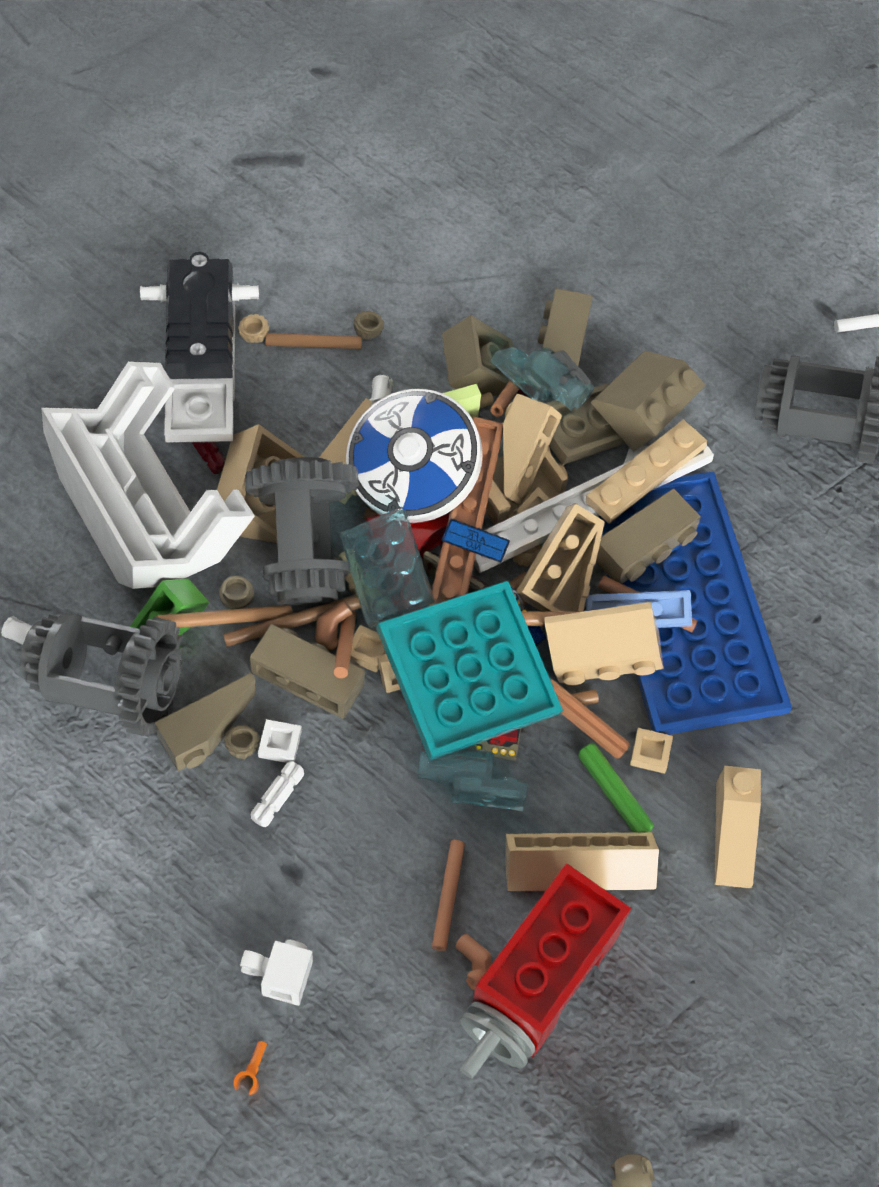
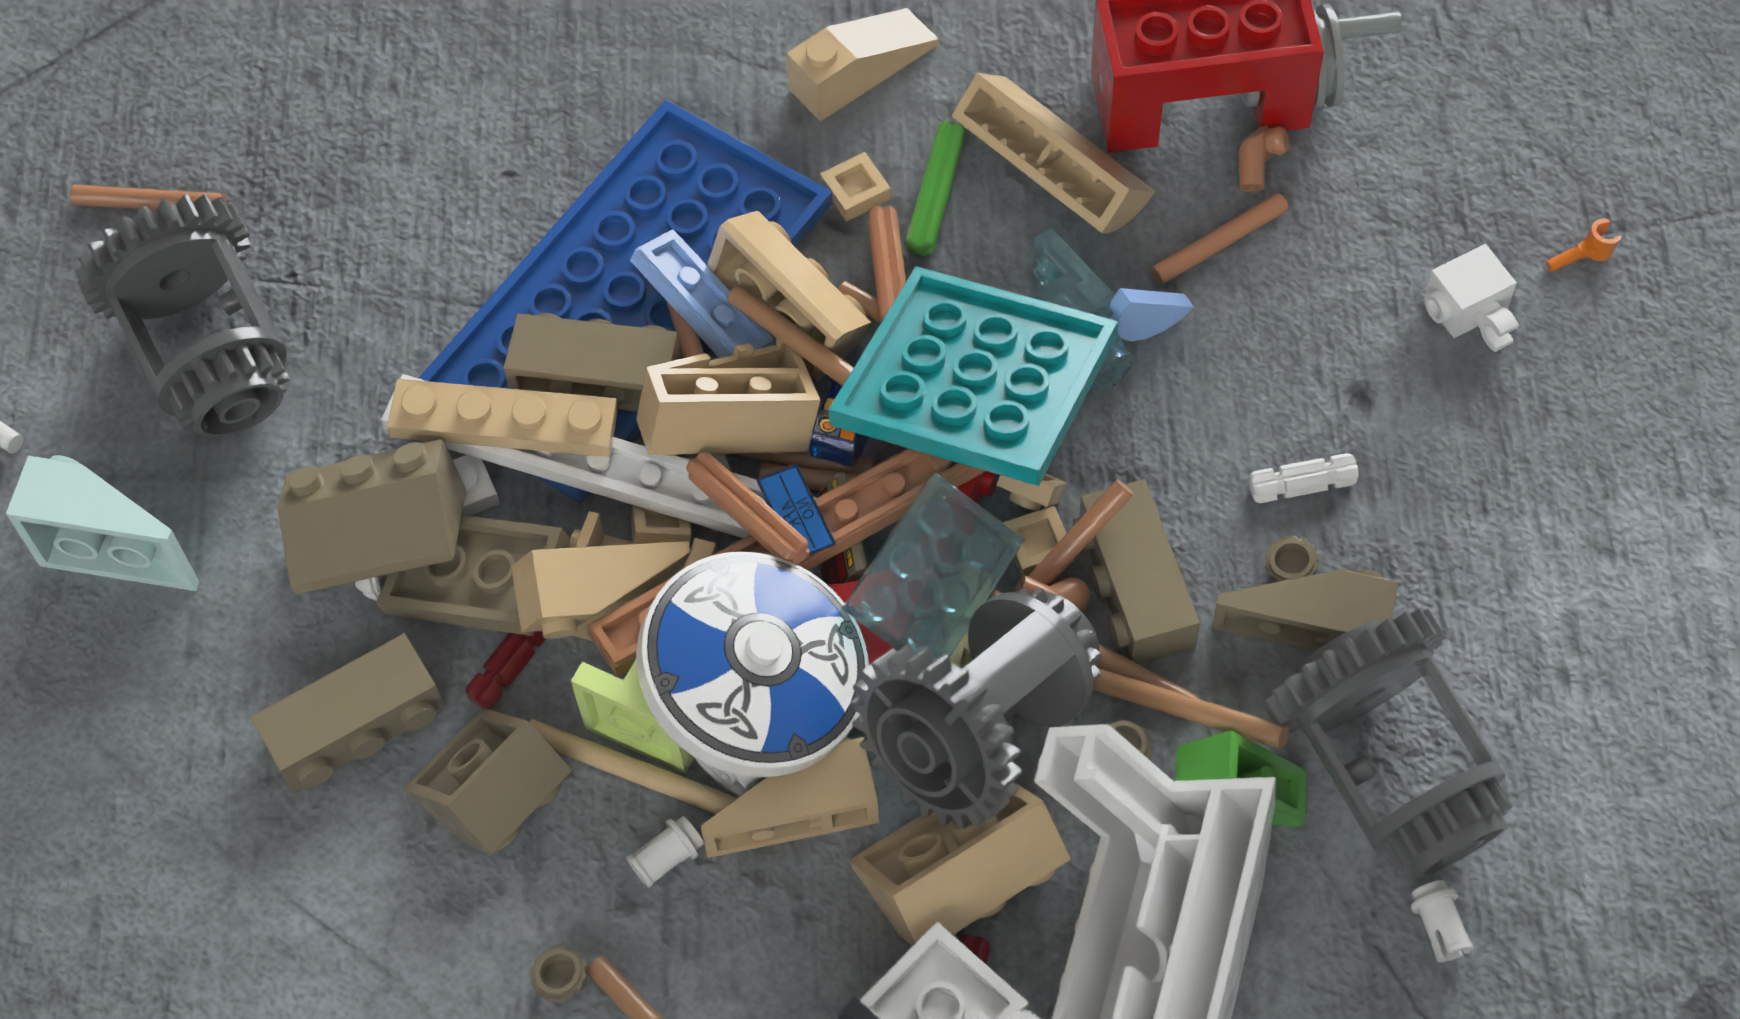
camera: 125 degrees left, 0 degrees up
(279, 741) = (1247, 524): white plate -> none
(435, 804) = (1147, 312): none -> light blue tile
(495, 519) = (747, 509): none -> nougat axle
(504, 399) = (509, 688): nougat piece -> none
(545, 375) = (460, 650): clear light blue plate -> none
(747, 307) = (91, 528): none -> light aqua slope

